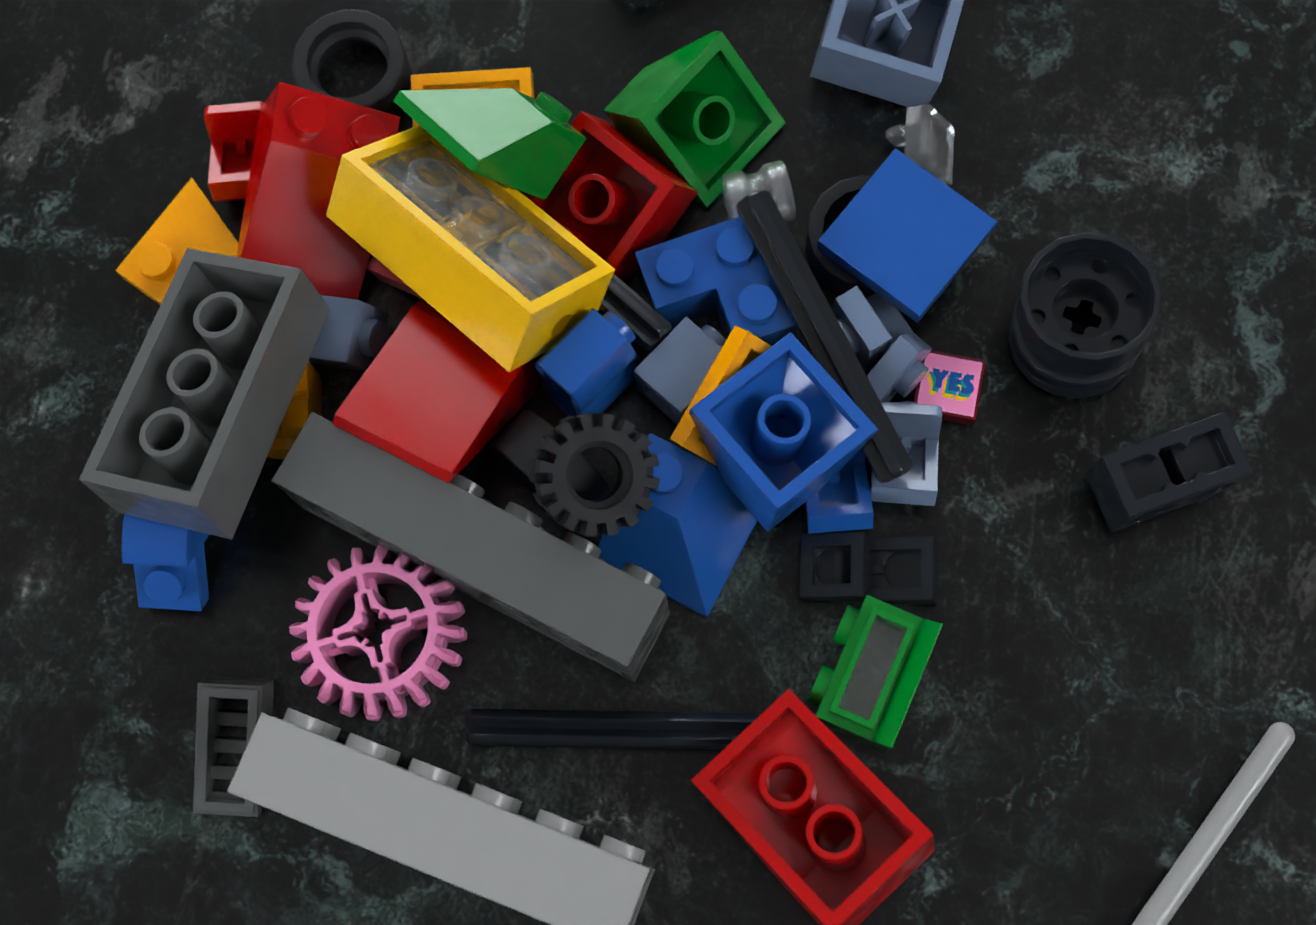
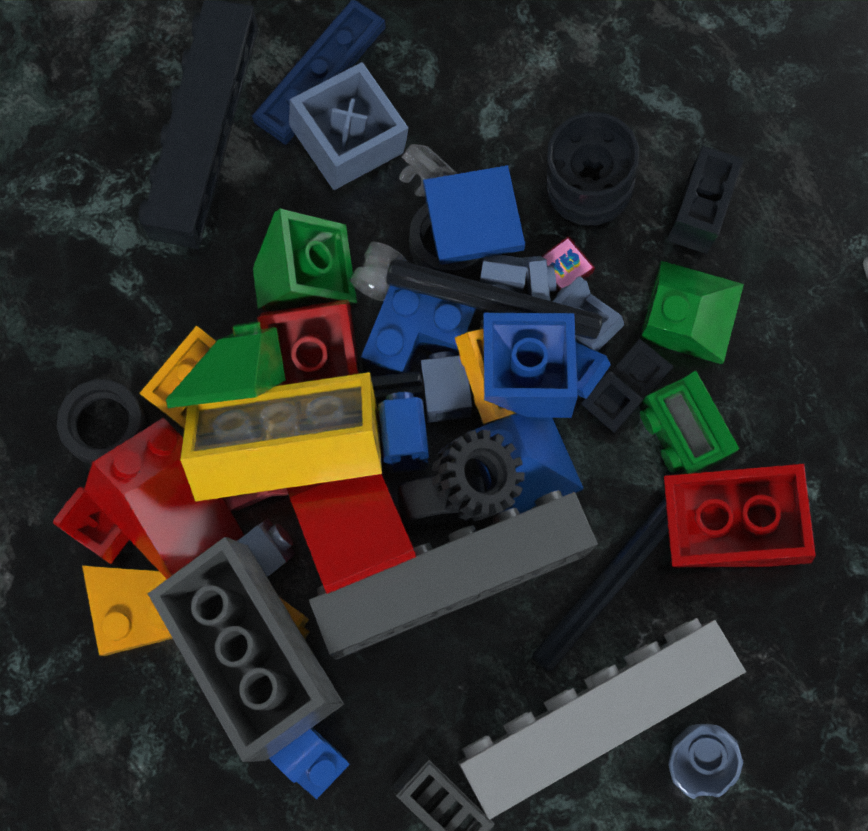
camera: 60 degrees left, 0 degrees up
(362, 582) = (464, 634): bright pink gear -> none
(1023, 569) = (691, 312): none -> green slope

